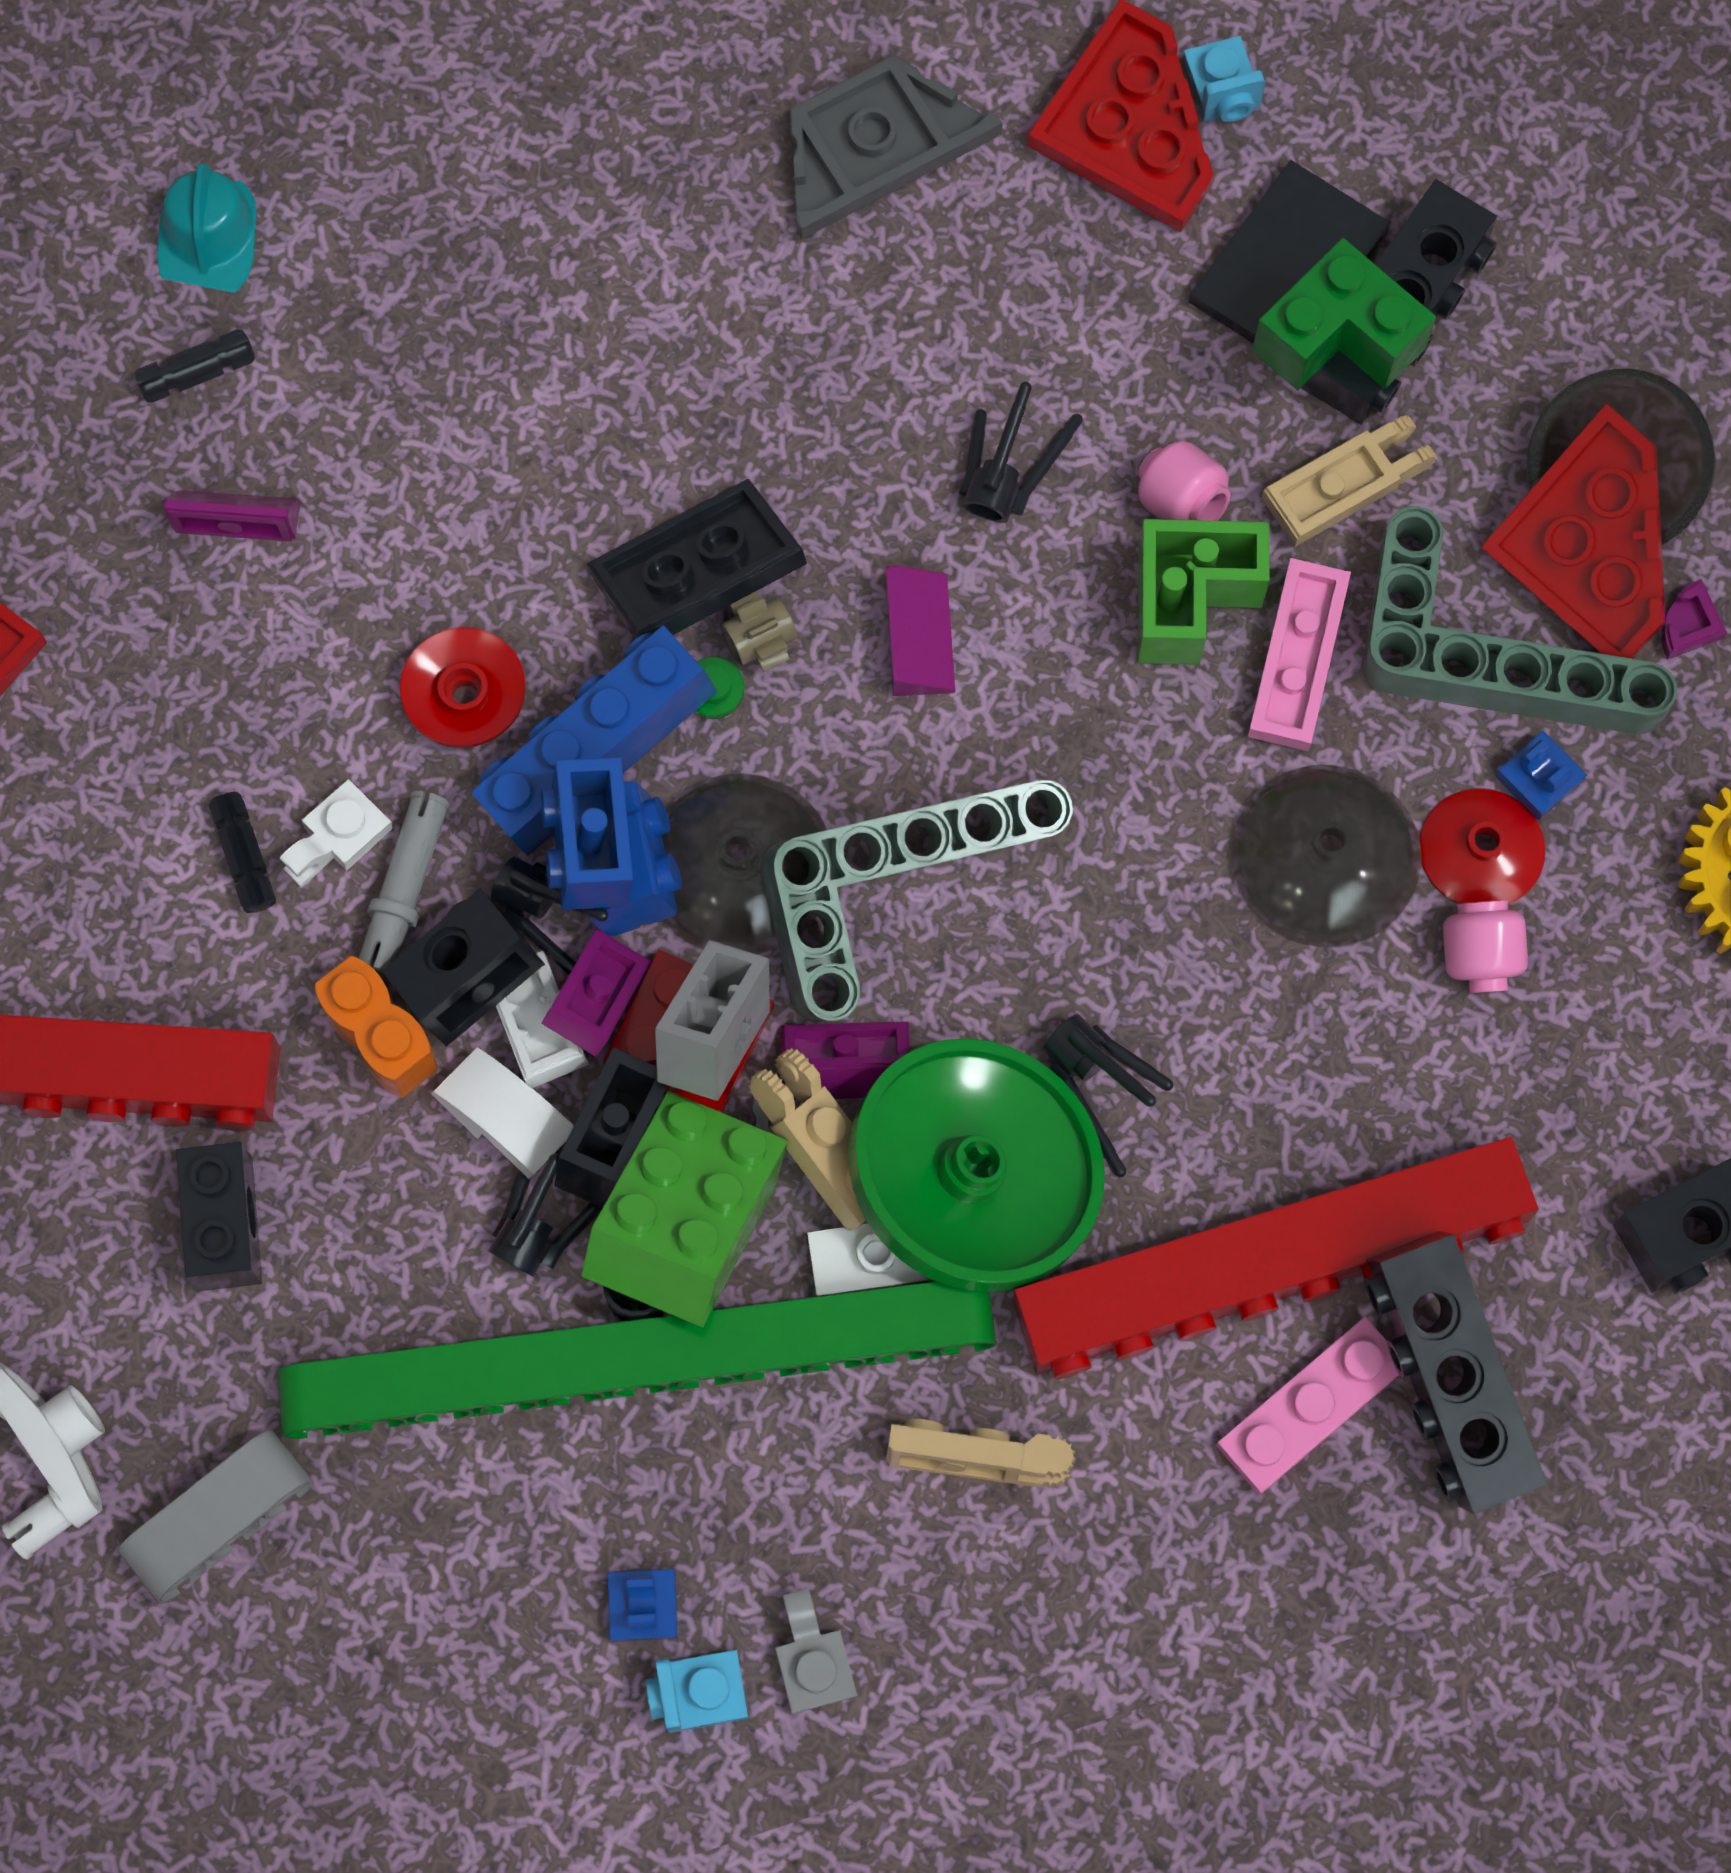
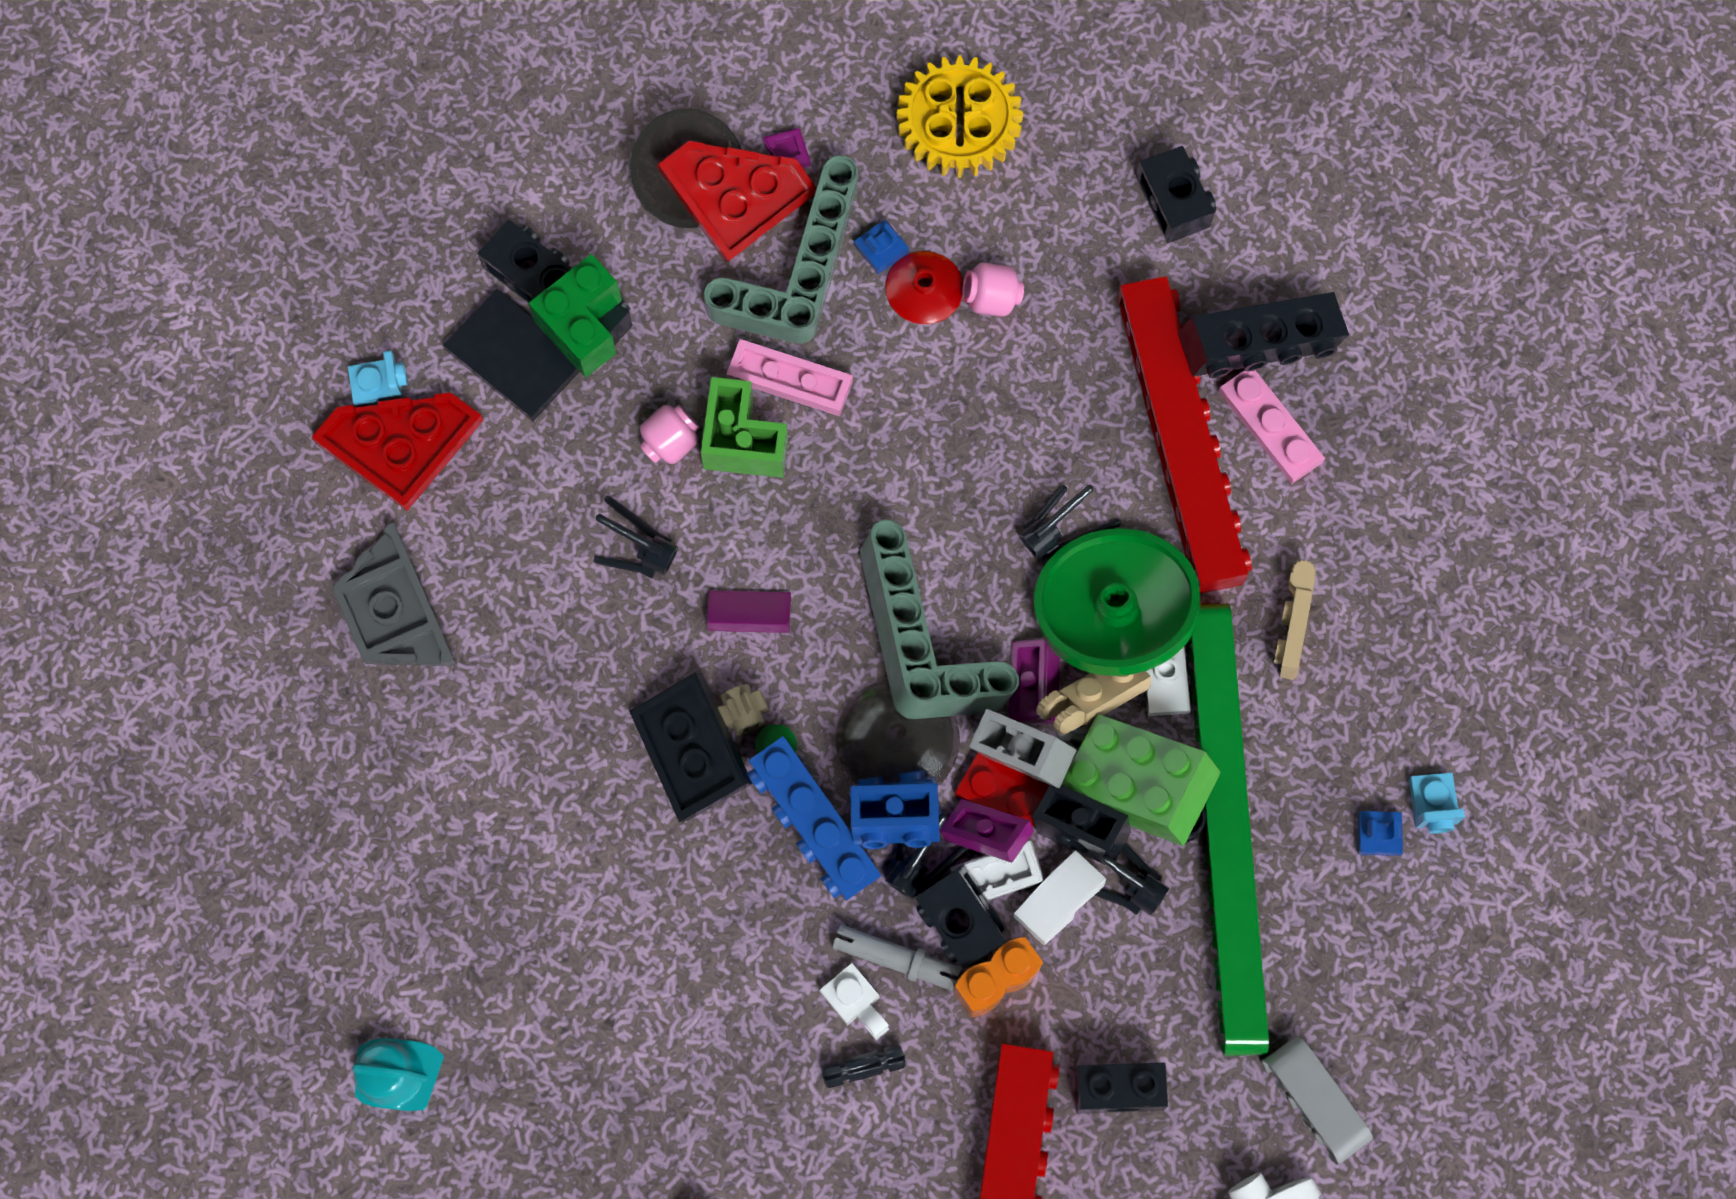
camera: 85 degrees left, 0 degrees up
(194, 365) = (499, 1085): black axle -> none
(233, 515) = (614, 1061): magenta slope -> none
(455, 660) = (760, 886): red dish -> none
(815, 1664) = (1418, 730): light grey plate -> none
(1316, 892) = (917, 401): clear smoke dish -> none
(1344, 481) = (675, 338): tan hinge -> none

